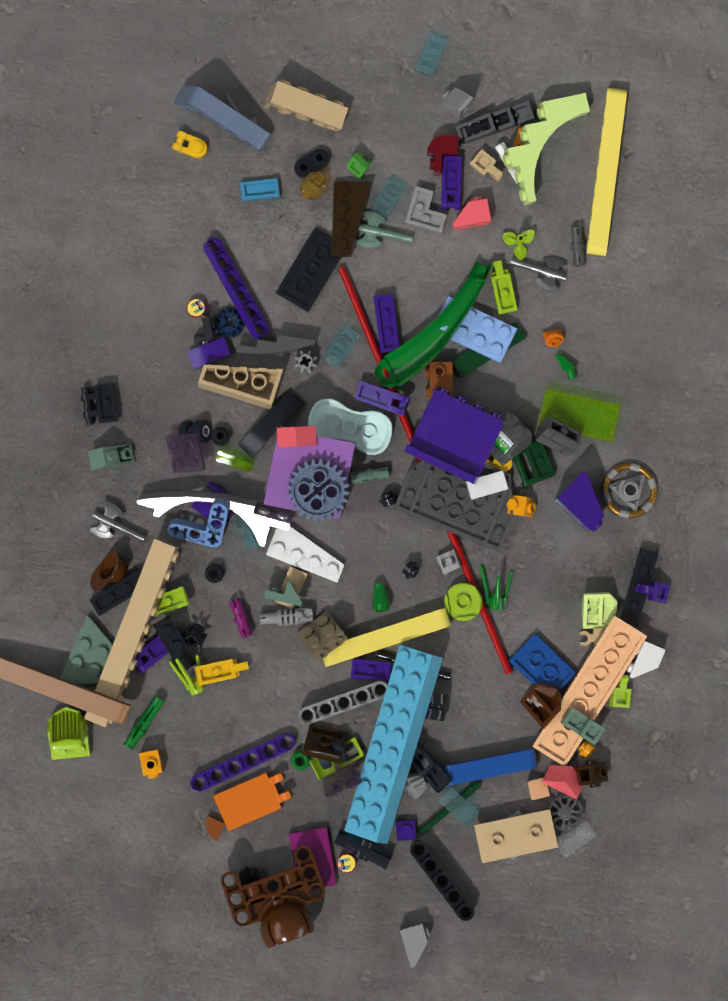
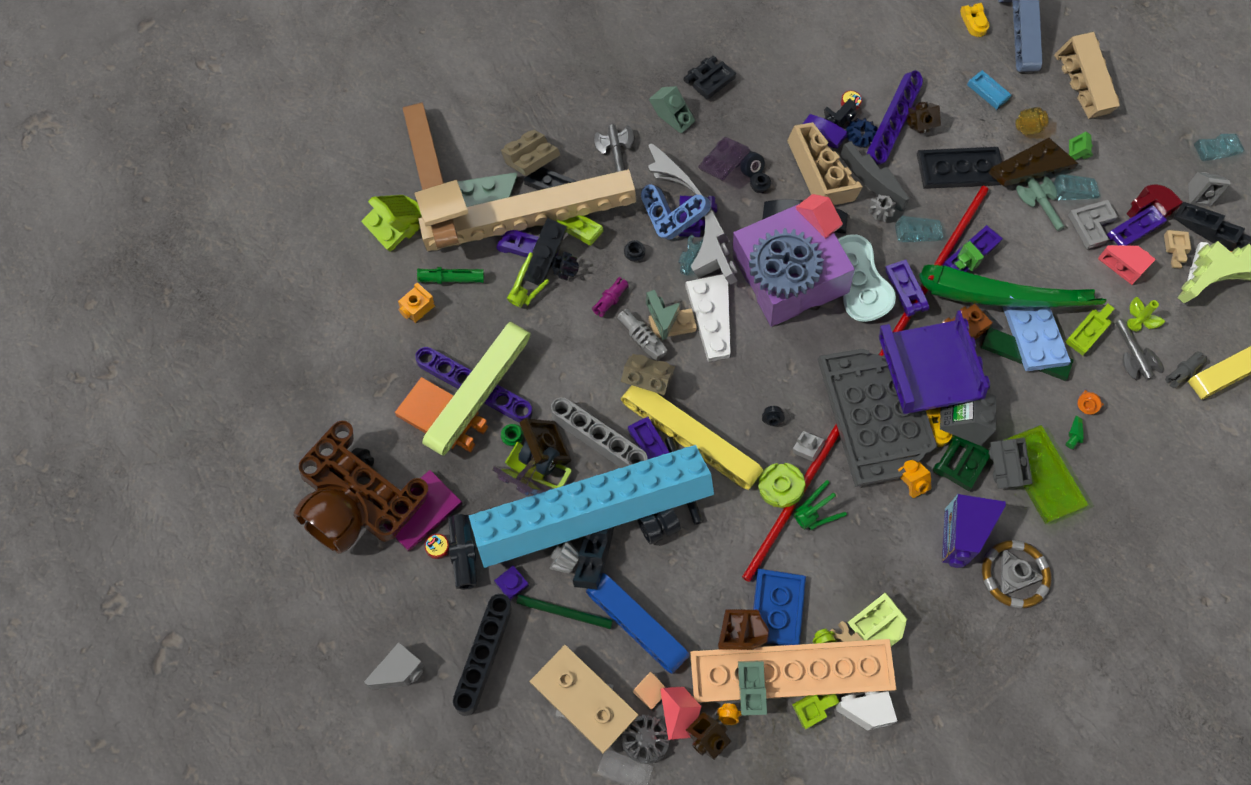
camera: 50 degrees right, 20 degrees down
(79, 596) = (529, 152): none -> dark tan plate
(95, 700) = (441, 203): none -> tan slope
(109, 570) = (574, 167): reddish brown piece -> none
(214, 827) = (389, 398): dark orange tile -> none
(219, 671) = (547, 306): yellow hinge -> none
(234, 461) = (747, 204): clear neon green axle -> none
(252, 268) = (923, 117): none -> dark brown brick
(252, 763) = (476, 389): none -> yellowish green beam
(312, 163) = (1056, 115): black plate -> none
(369, 475) = (829, 323): sand green pin -> none
(380, 598) = (722, 407): green cone -> none
(388, 499) = (820, 350): black plate -> none
(392, 336) = (969, 257): none -> bright green tile
(459, 806) = (573, 619): clear light blue slope -> none
(487, 485) = (910, 428): white tile -> none
(583, 652) = (824, 636): none -> lime plate
(641, 575) = (936, 649): black plate -> none
(656, 591) = (945, 670): dark purple plate -> none

